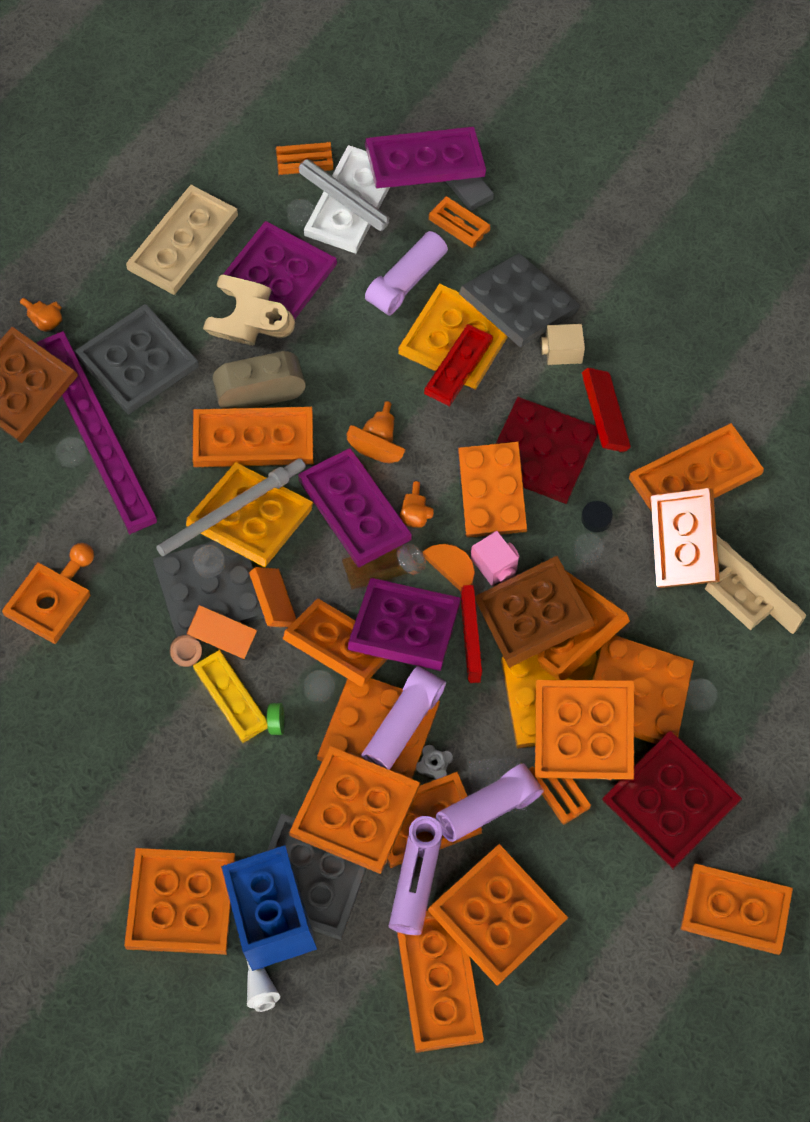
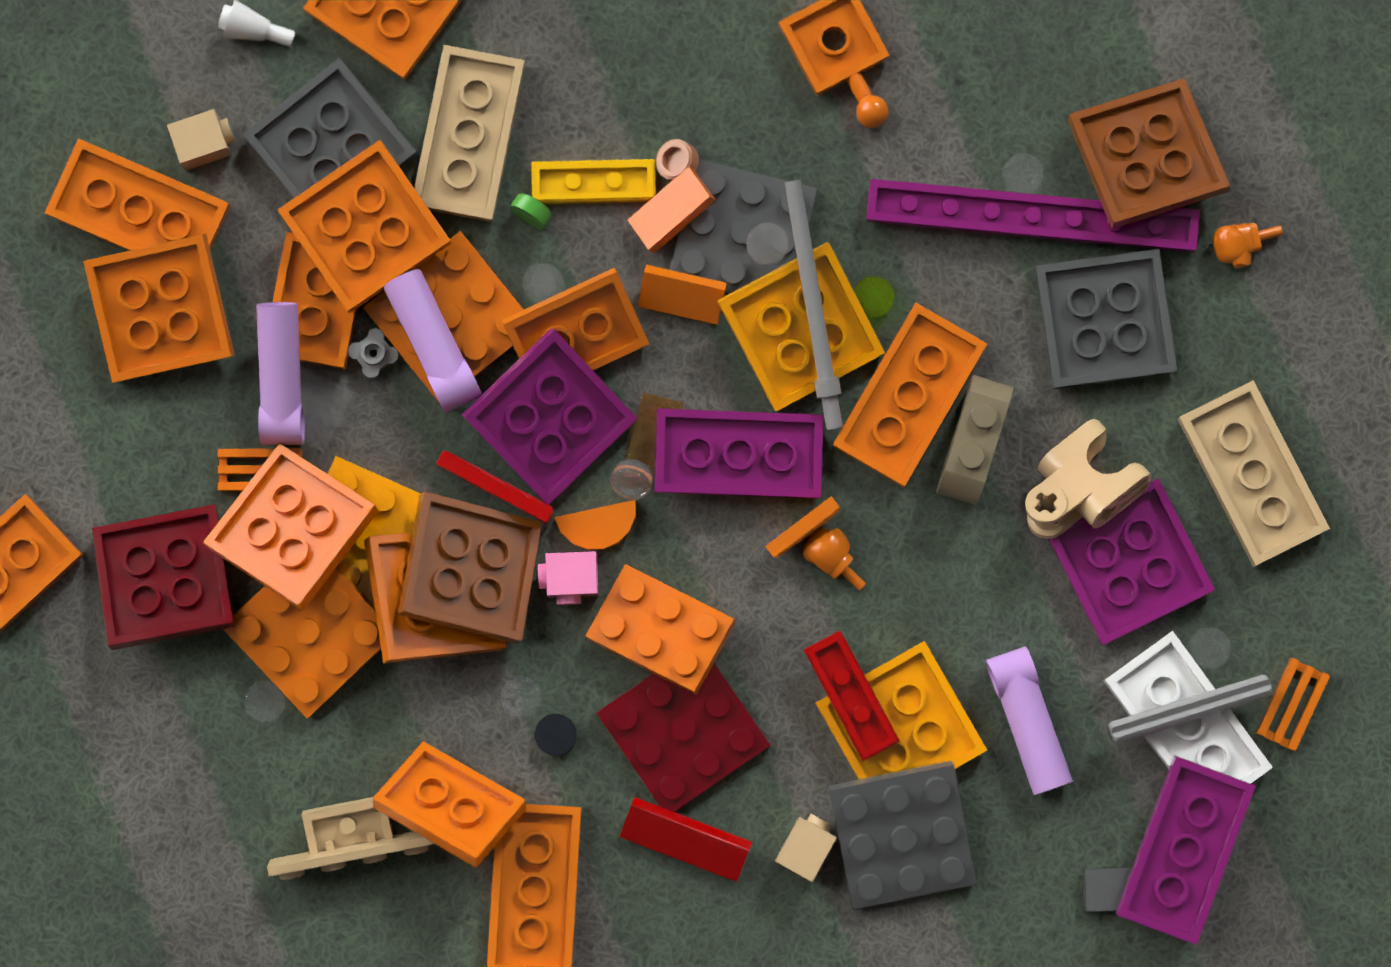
camera: 125 degrees right, 20 degrees up
(200, 488) = (875, 296): none -> clear neon green tile
(245, 790) = (469, 132): none -> tan plate
(268, 908) = (314, 71): blue slope -> none
(362, 963) = (201, 139): none -> tan brick
(409, 907) = (219, 215): lavender piece -> none
(413, 508) = (694, 523): orange piece -> none
(456, 225) = (1038, 853): orange tile -> none

